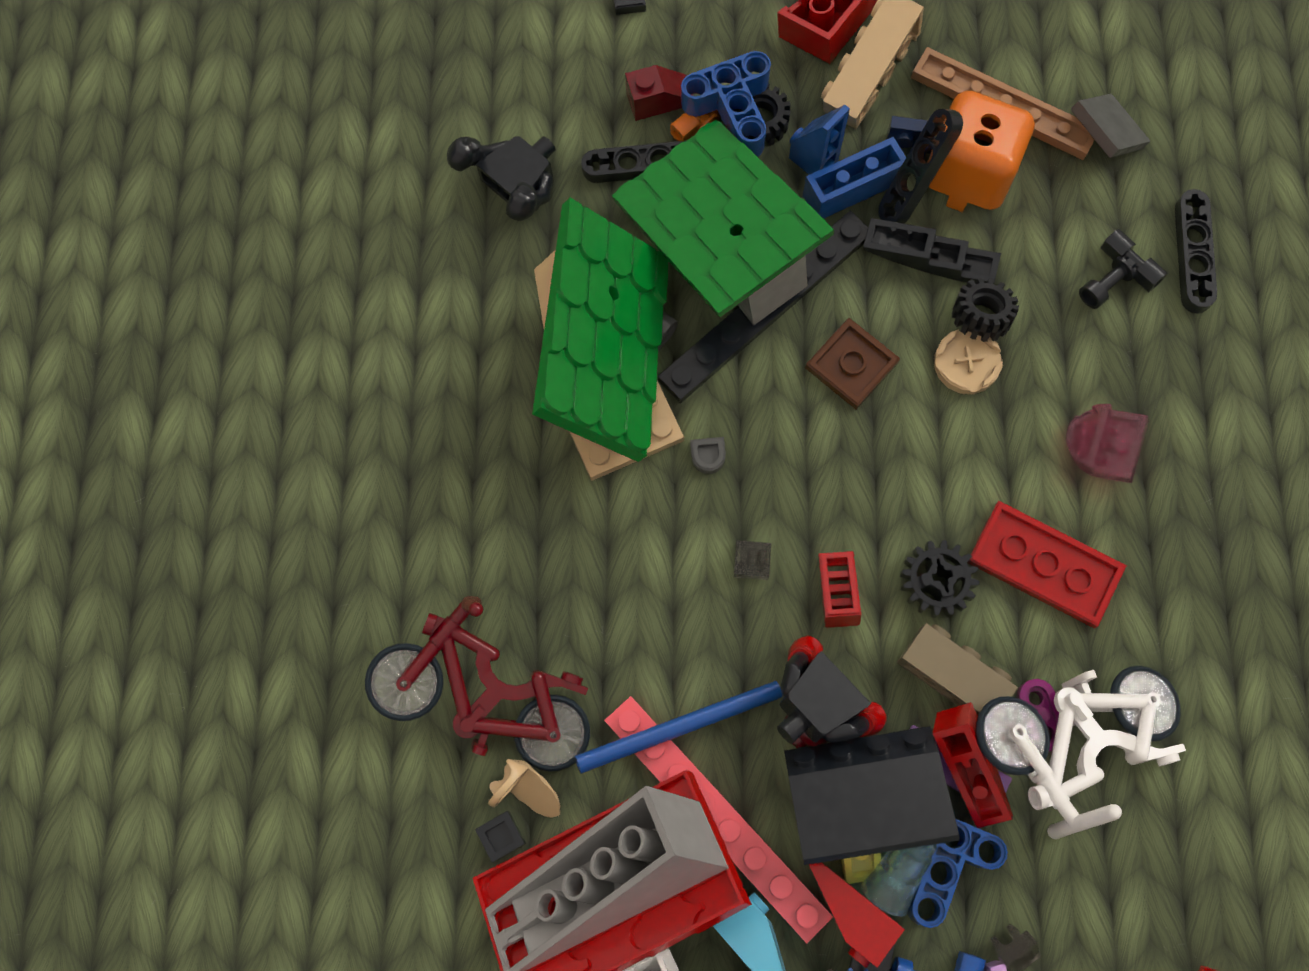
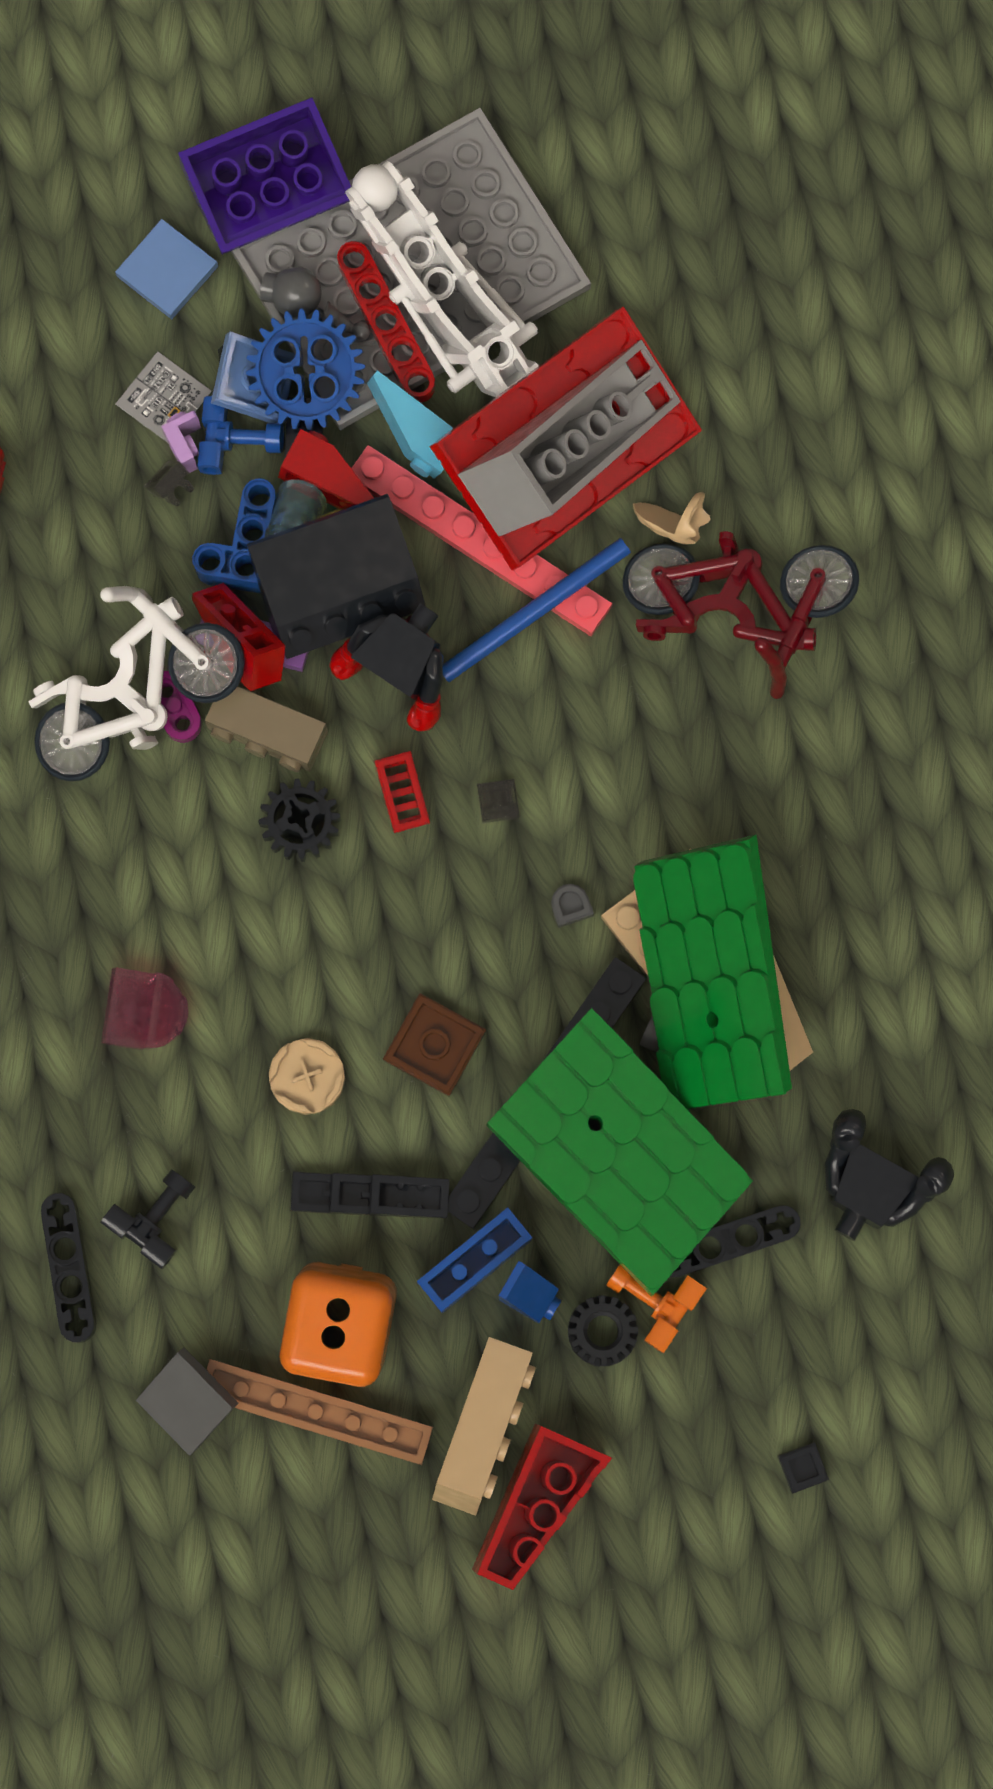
camera: 165 degrees right, 5 degrees up
(500, 836) = (685, 472): black plate -> none
(653, 91) = (730, 1335): dark red slope -> none
(733, 96) = (646, 1321): blue beam -> none
(907, 131) = (425, 1341): dark blue bracket -> none
(915, 164) = (407, 1274): black beam -> none
(981, 323) = (282, 1148): black tyre -> none
(1047, 564) = (189, 866): red tile -> none

